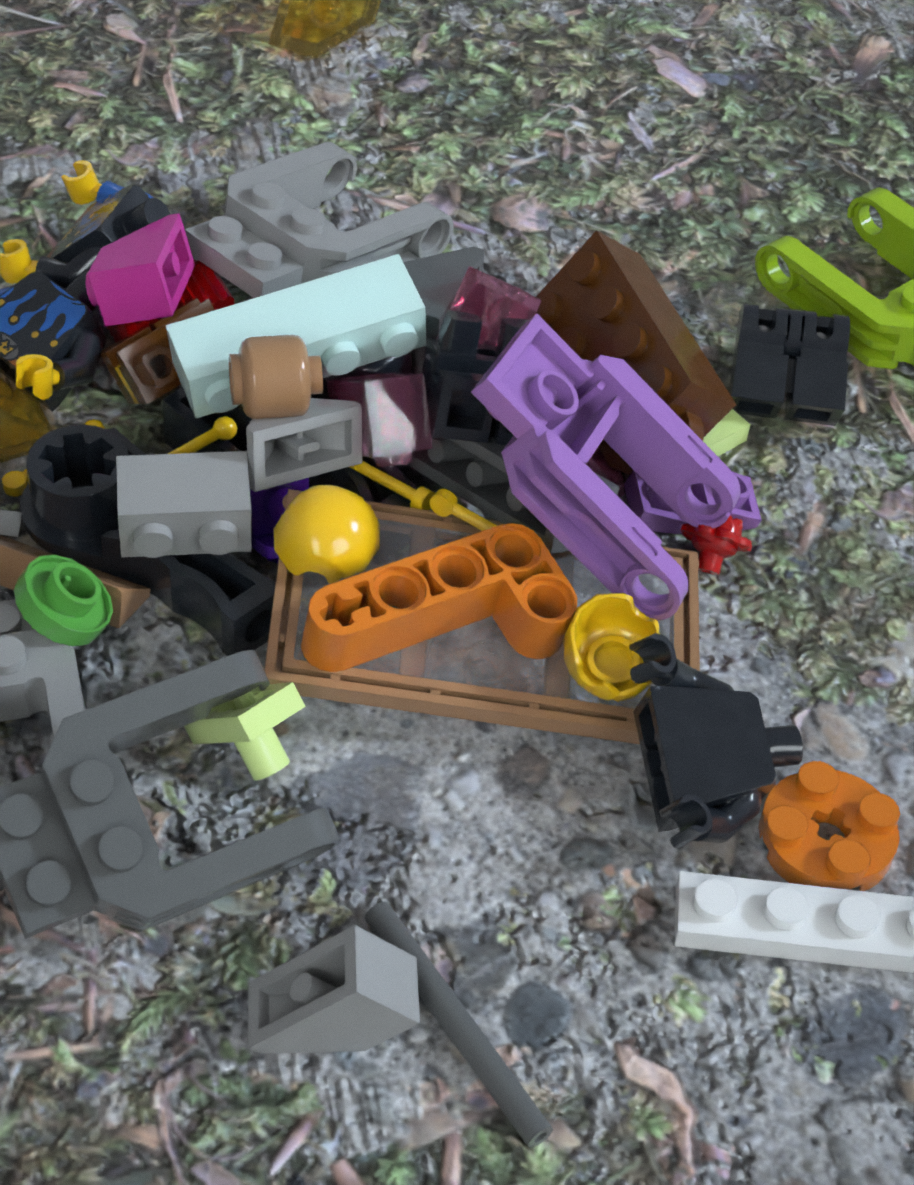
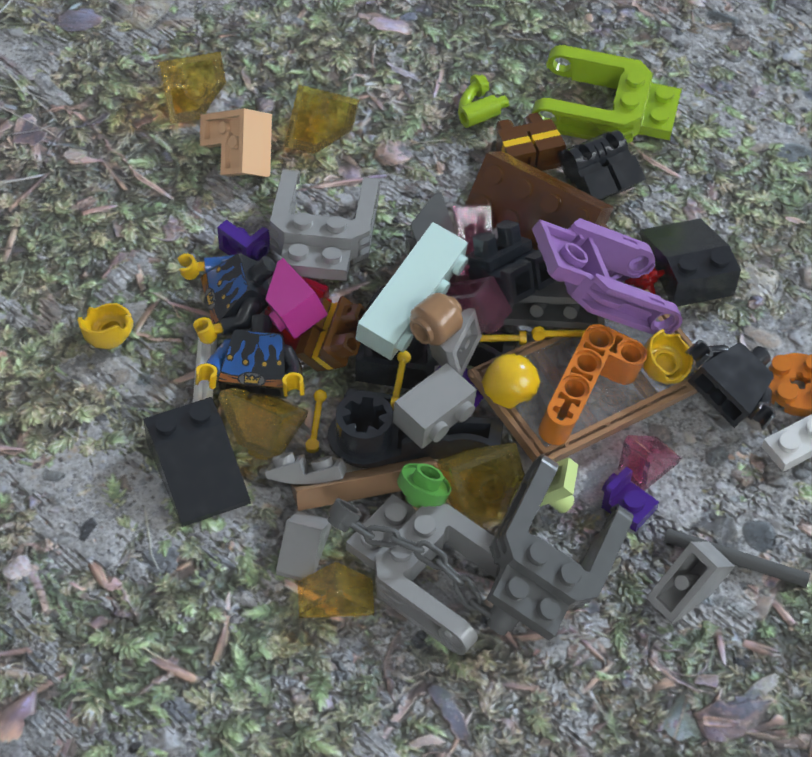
camera: 35 degrees left, 5 degrees up
(157, 639) = (483, 482): none -> clear yellow slope
(191, 194) = (237, 241): none -> dark purple bracket
(320, 90) = (242, 138): none -> light nougat panel
(368, 820) = (621, 491): none -> dark purple bracket
(446, 113) = (319, 119): none -> clear yellow slope
(459, 781) = (647, 458): none -> clear pink slope
(688, 214) = (475, 112): none -> lime plant
(700, 271) = (533, 143): none -> reddish brown hips
(812, 563) = (695, 261): none -> black slope

